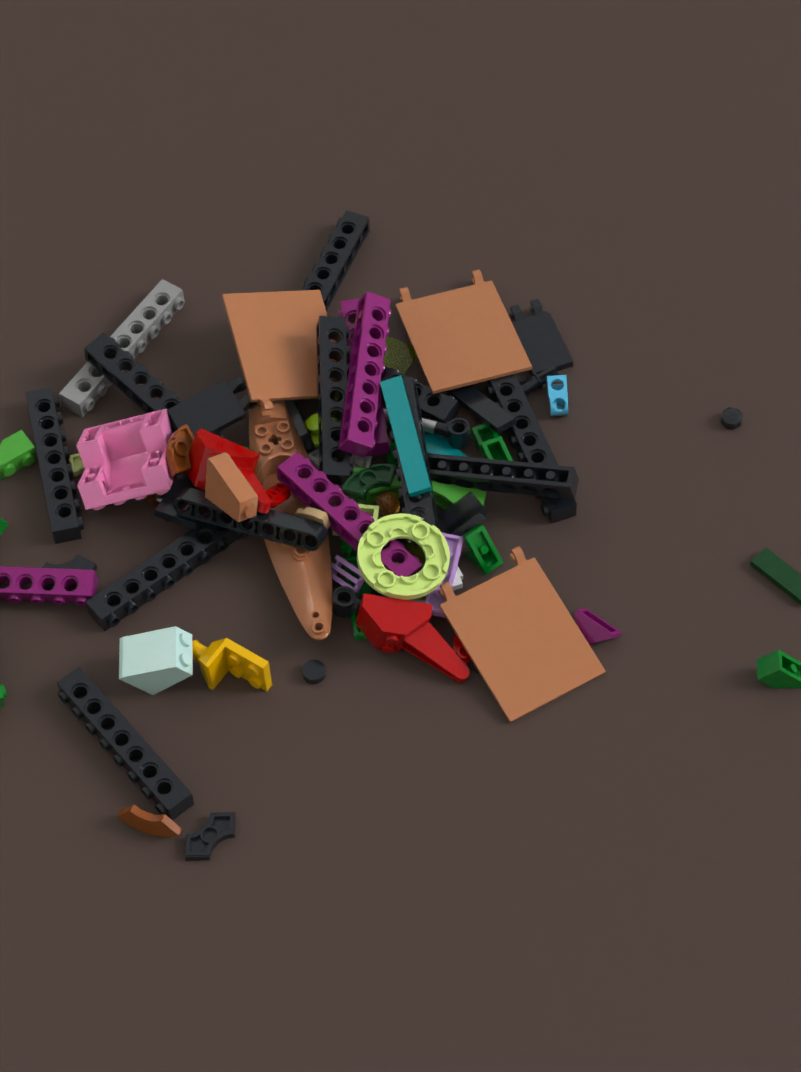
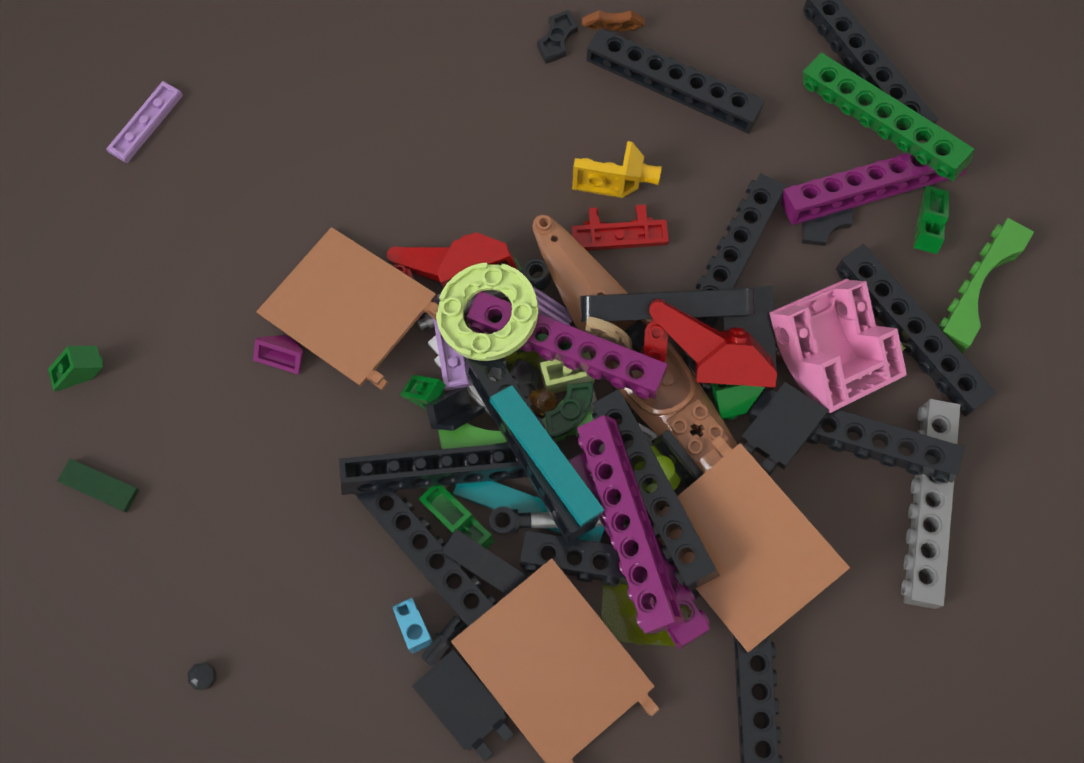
camera: 155 degrees right, 15 degrees up
(156, 659) = (685, 145): light aqua slope -> none
(178, 450) = (786, 359): dark orange tile -> none
(229, 488) = (696, 303): nougat slope -> none
(268, 626) = (637, 233): none -> red hinge
(314, 671) = (537, 207): black tile -> none
(660, 894) = (144, 122): none -> lavender tile

